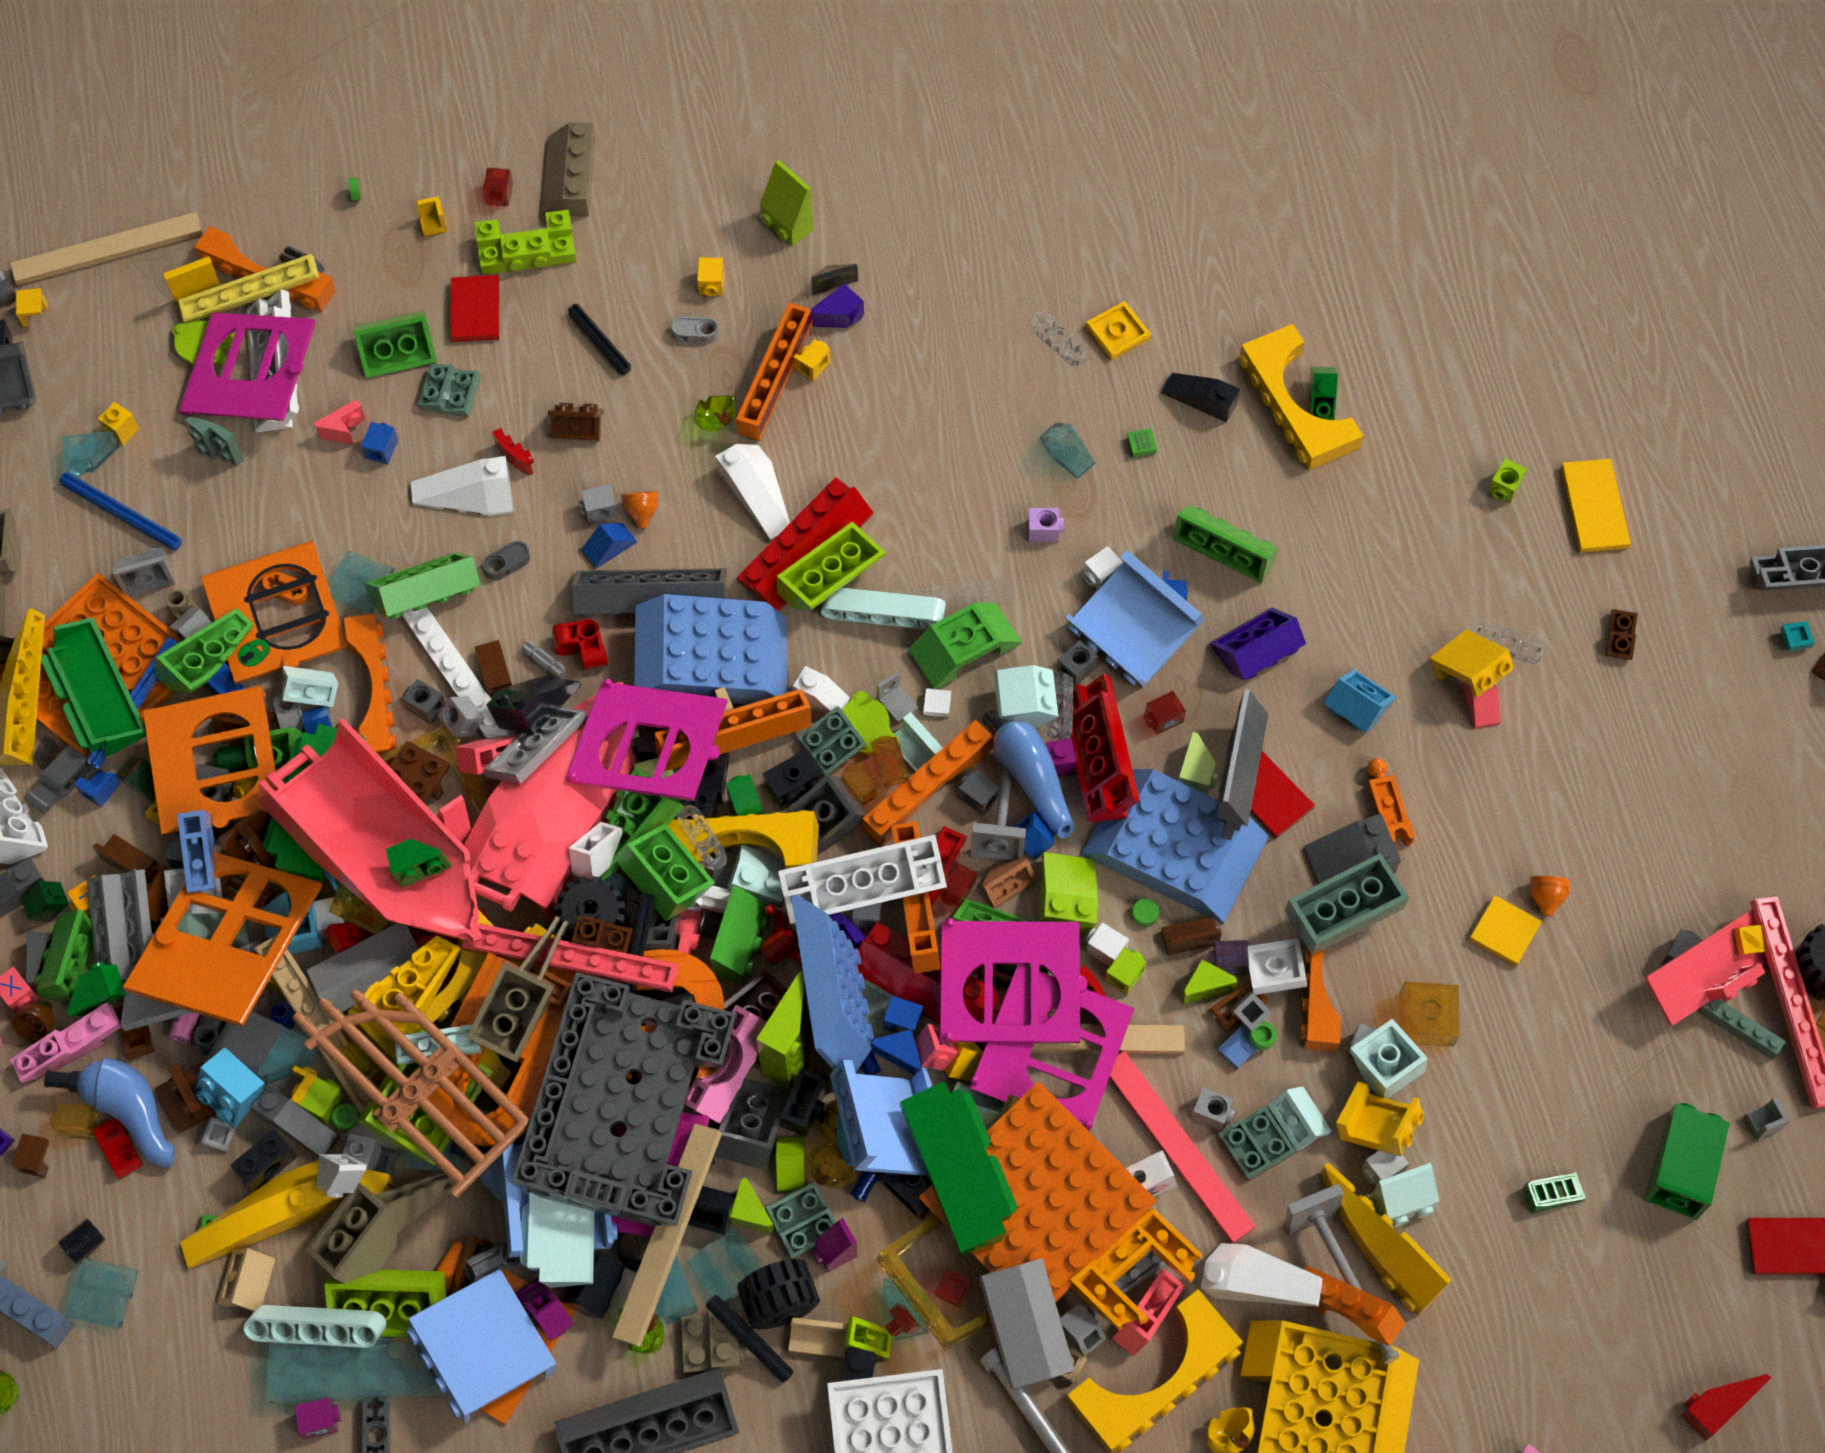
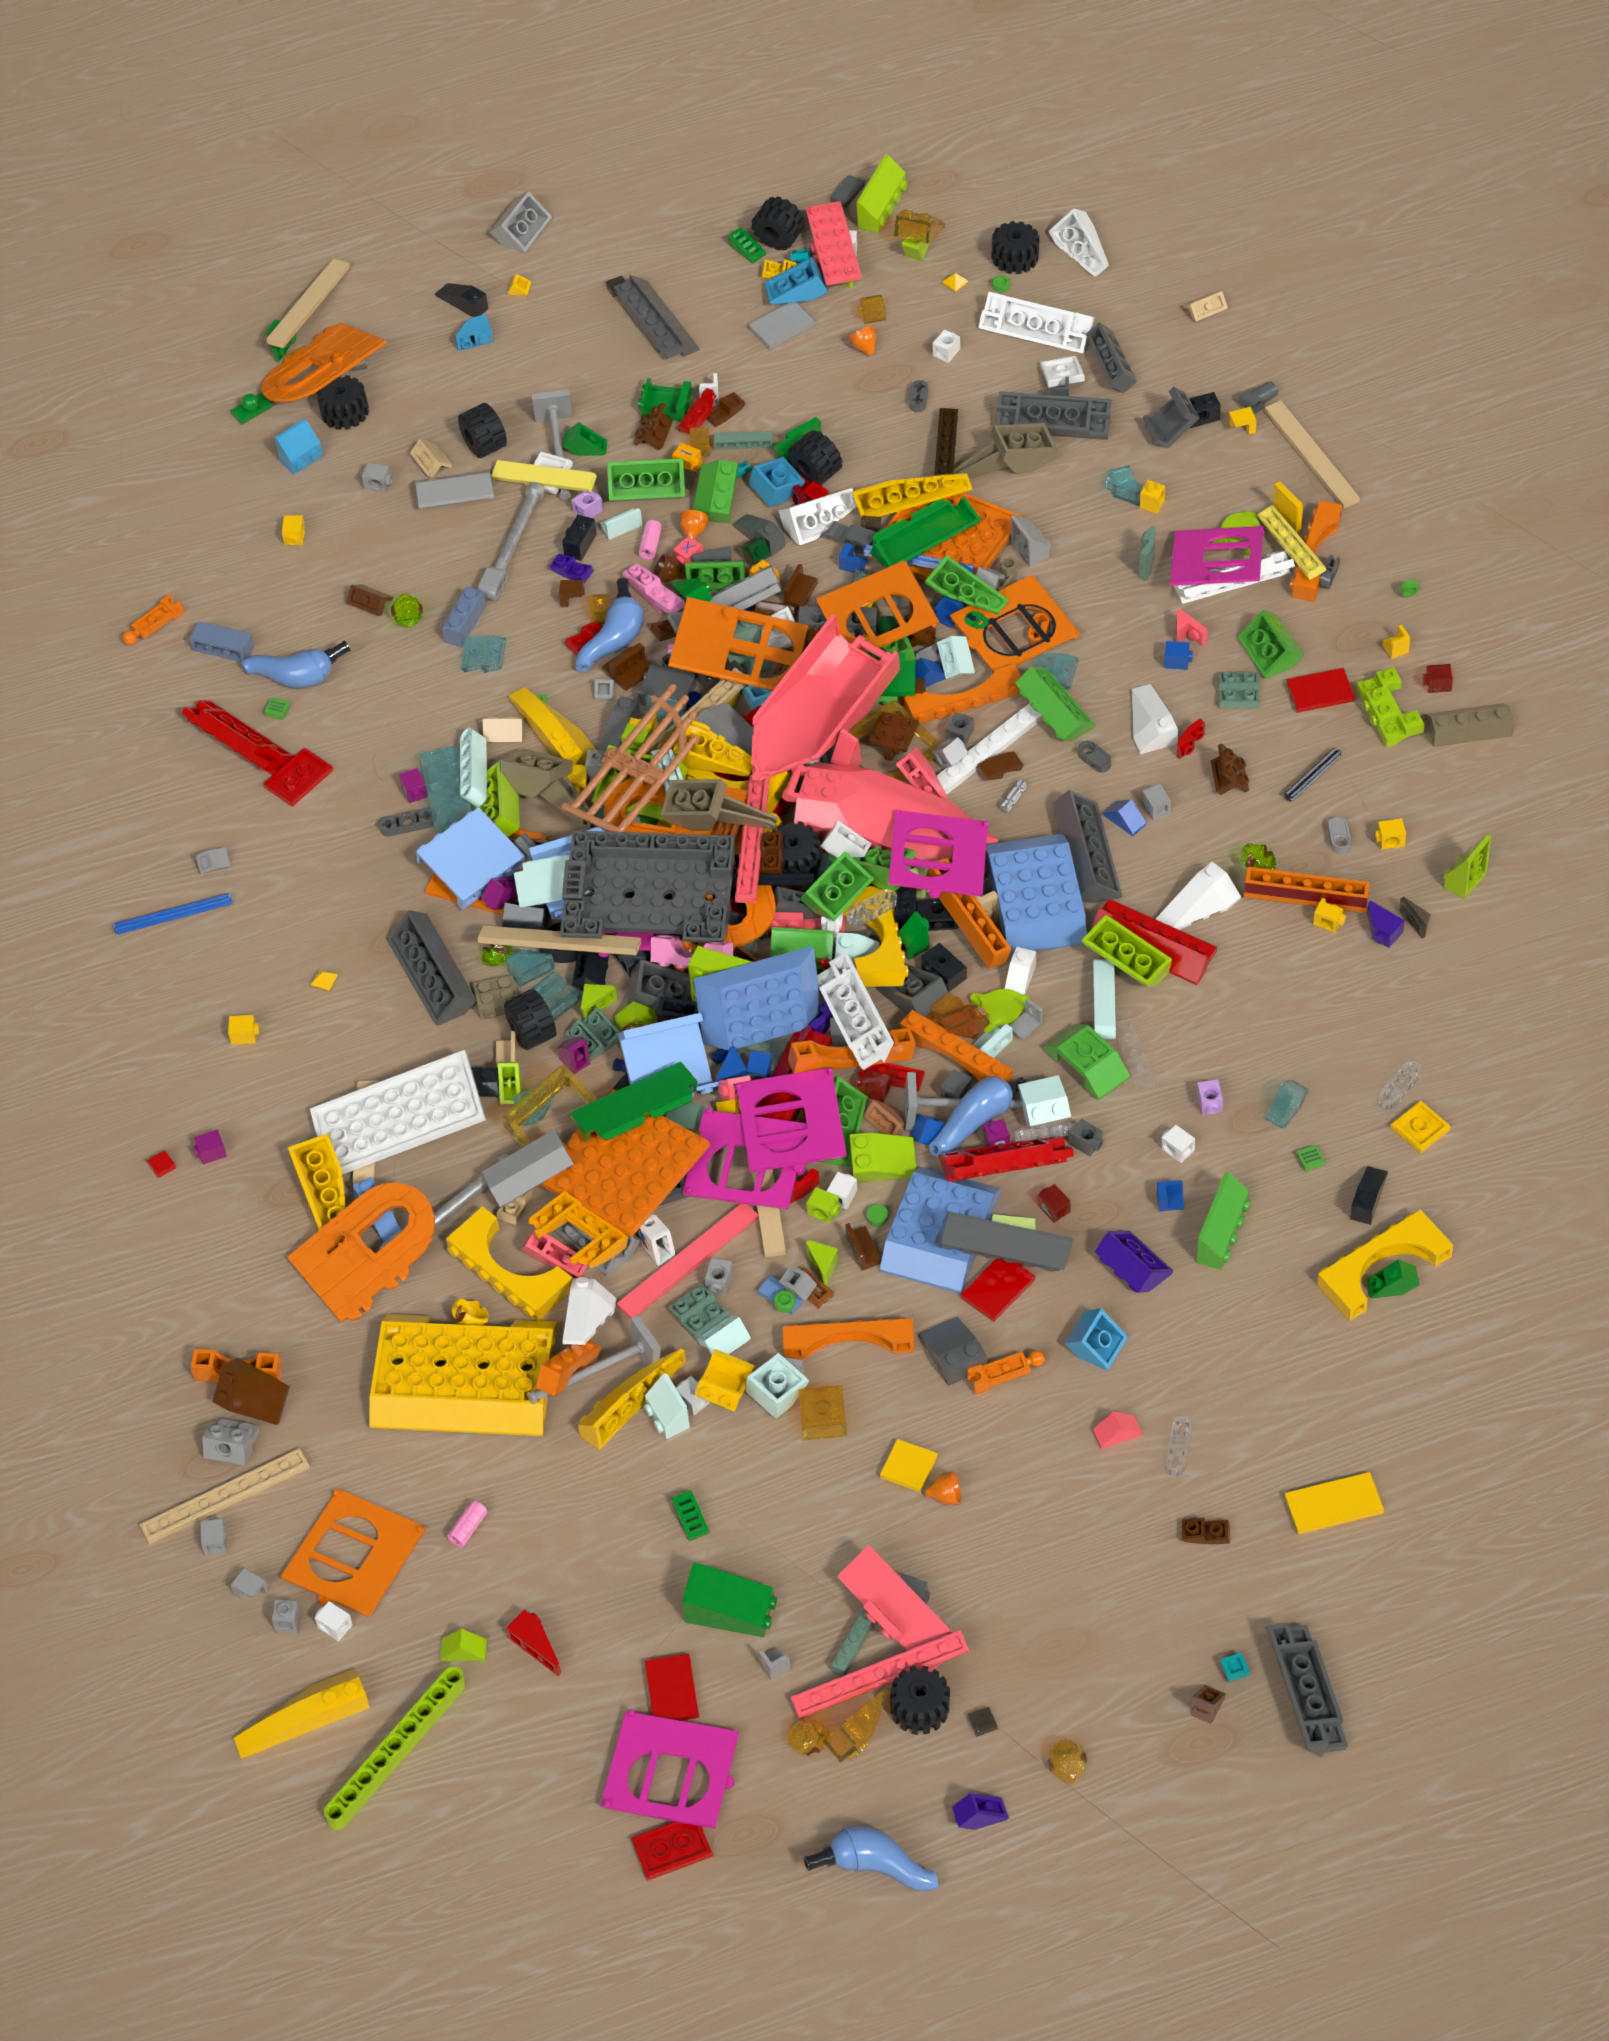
camera: 85 degrees right, 10 degrees down
(81, 1241) = (516, 633): black piece -> none
(120, 511) = (1080, 519): blue axle -> none
(197, 850) = (803, 616): medium blue slope -> none
(228, 1087) = (632, 677): medium azure slope -> none
(263, 1160) = (586, 715): black brick -> none
(339, 1174) = (573, 744): white slope -> none
(414, 861) = (803, 727): green slope -> none
(530, 703) = (967, 786): black slope -> none
(531, 750) = (928, 793): light grey tile -> none
(571, 638) = (1032, 817): red piece -> none
(640, 506) = (1160, 826): orange helmet -> none
(749, 1338) = (497, 1011): black axle -> none
(832, 740) = (980, 986): sand green slope -> none
(902, 1321) = (518, 1090): clear red tile -> none
(937, 703) = (1032, 1052): white tile -> none
(953, 1288) = (554, 1123): clear red tile -> none
(1082, 1329) = (528, 1208): light grey brick -> none
(1136, 621) = (1129, 1168): light blue panel -> none
(1230, 956) = (847, 1273): clear purple brick -> none
(1276, 966) = (843, 1302): white plate -> none
(1346, 904) = (895, 1330): sand green brick -> none
(1472, 661) = (1141, 1408): yellow panel -> none
(1510, 473) = (1340, 1437): lime brick -> none
(1749, 940) = (925, 1631): yellow tile -> none

